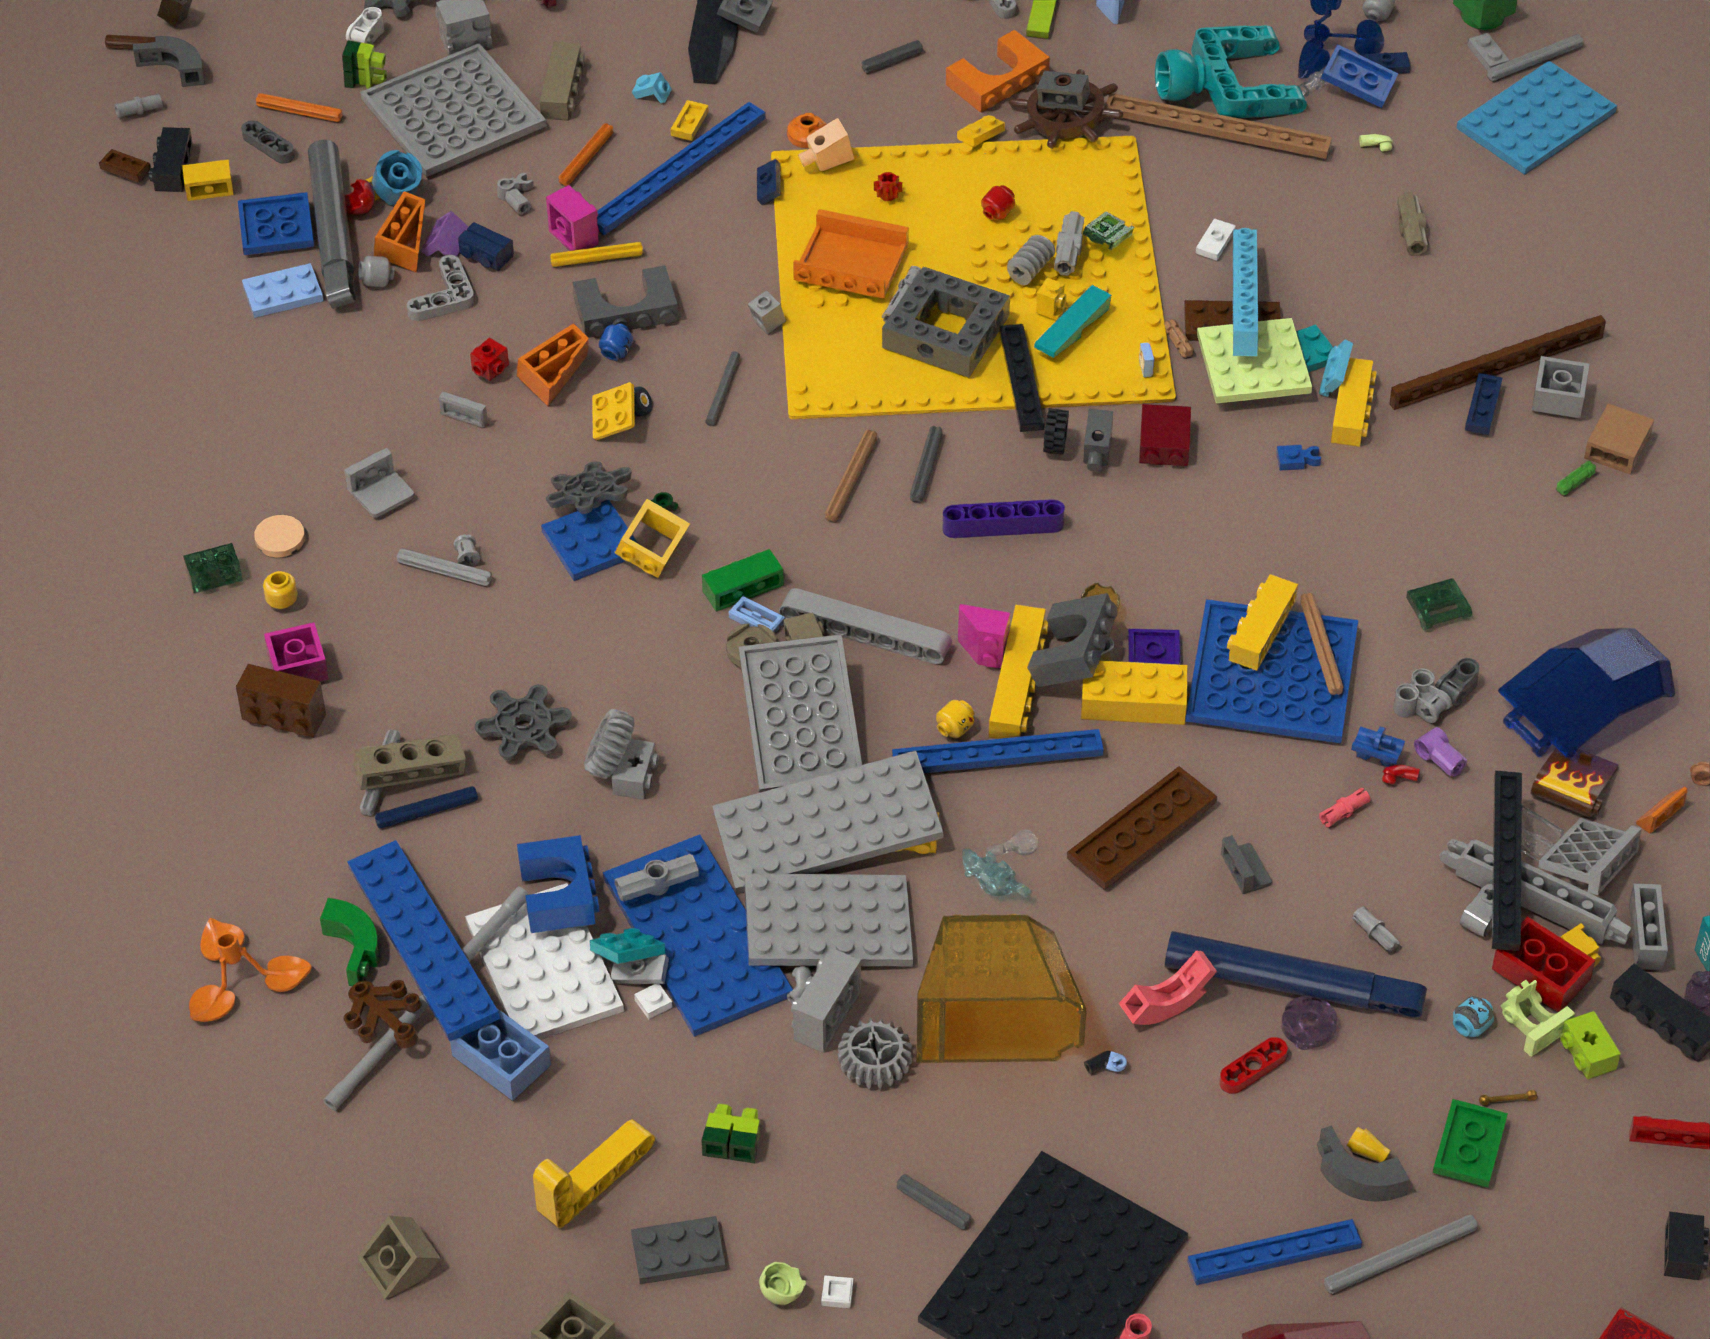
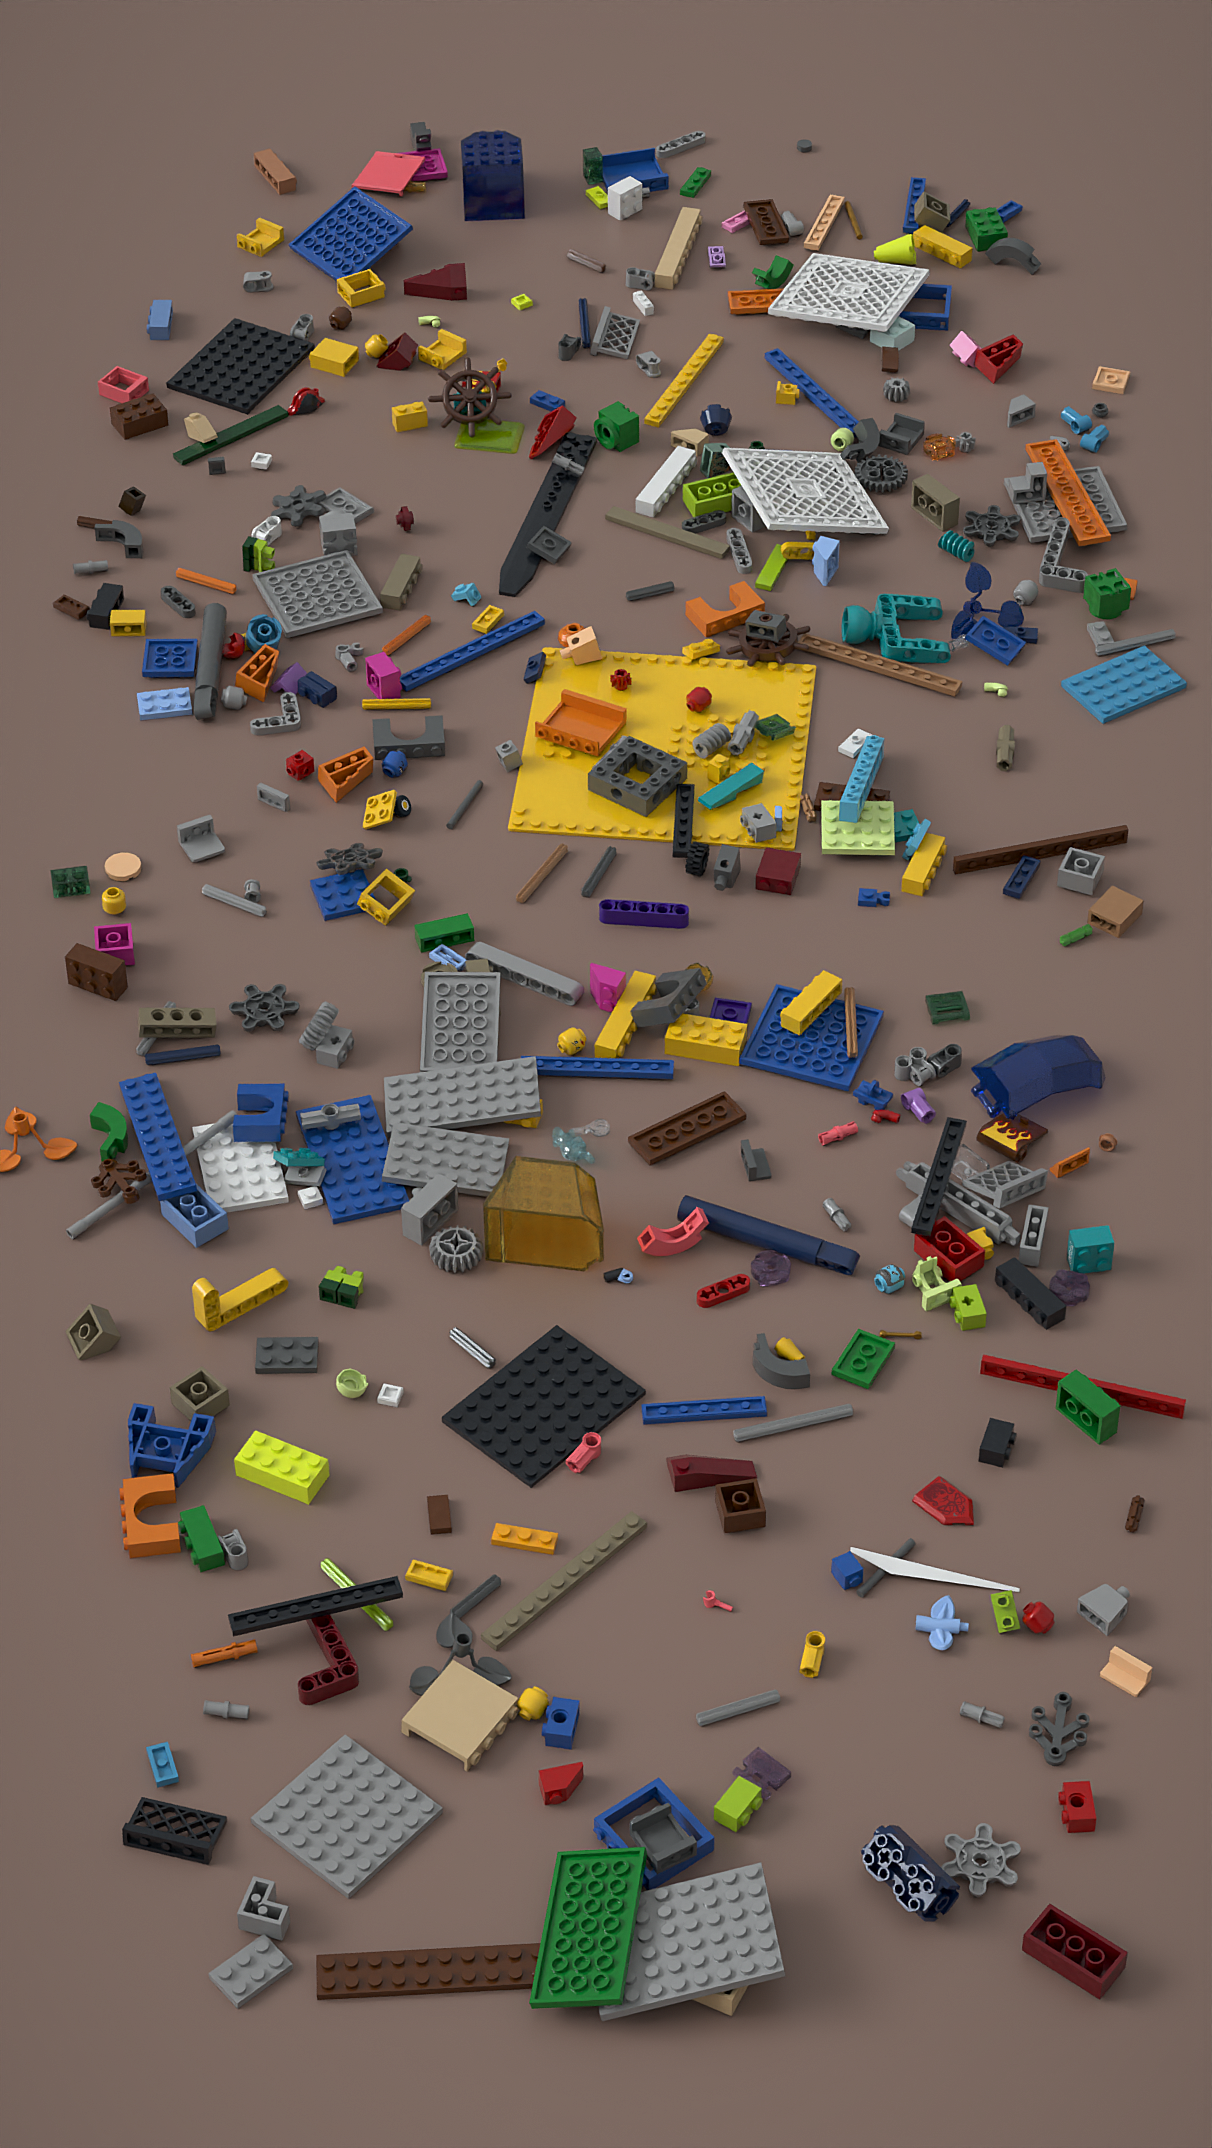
camera: 10 degrees right, 5 degrees down
(1123, 369) = (758, 822): none -> light grey brick

